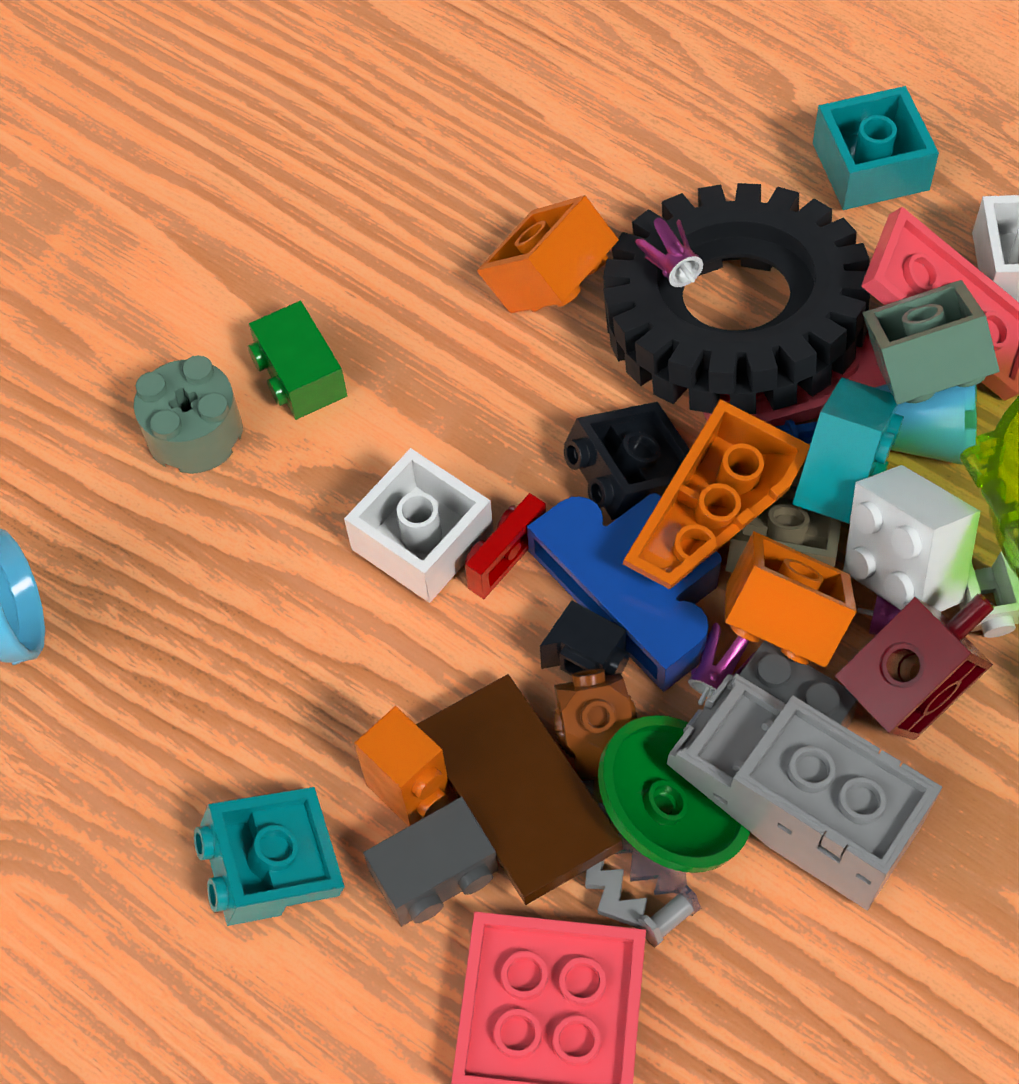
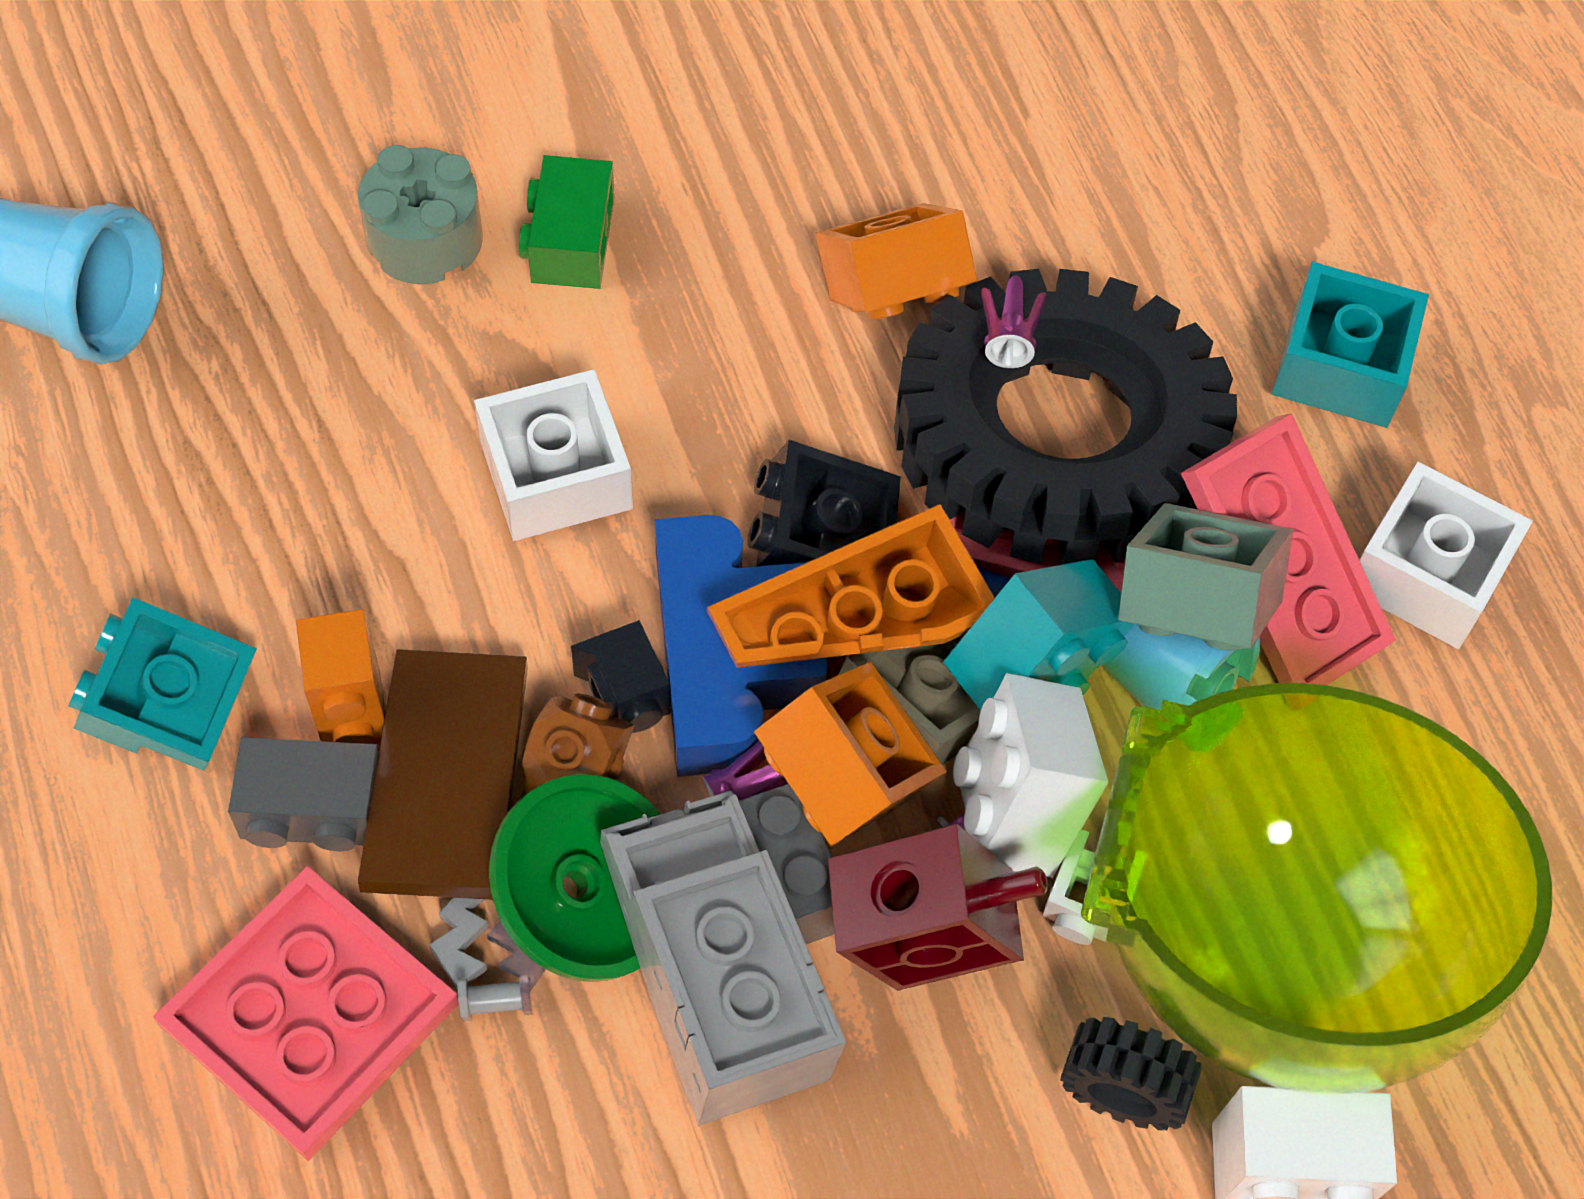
camera: 25 degrees right, 0 degrees up
(493, 559) = (622, 530): red plate -> none

